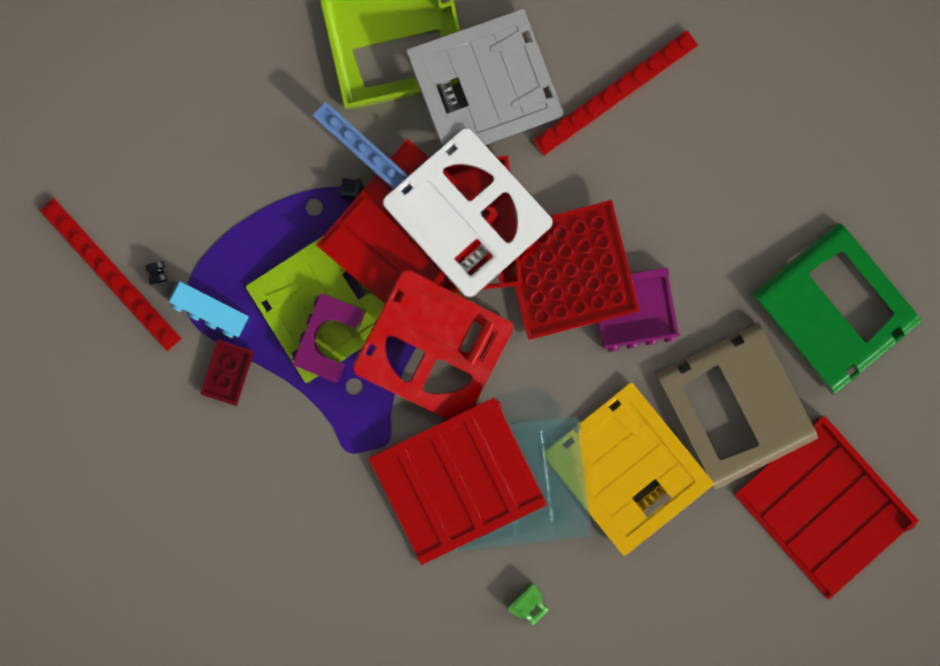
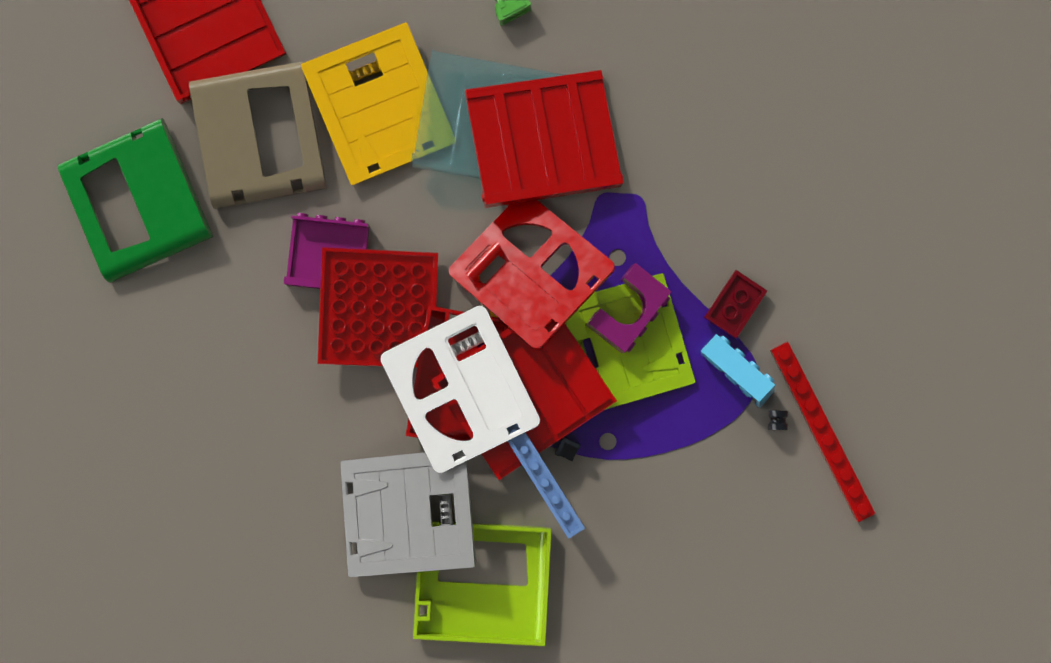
camera: 165 degrees left, 0 degrees up
(615, 93) = (283, 469): red plate -> none

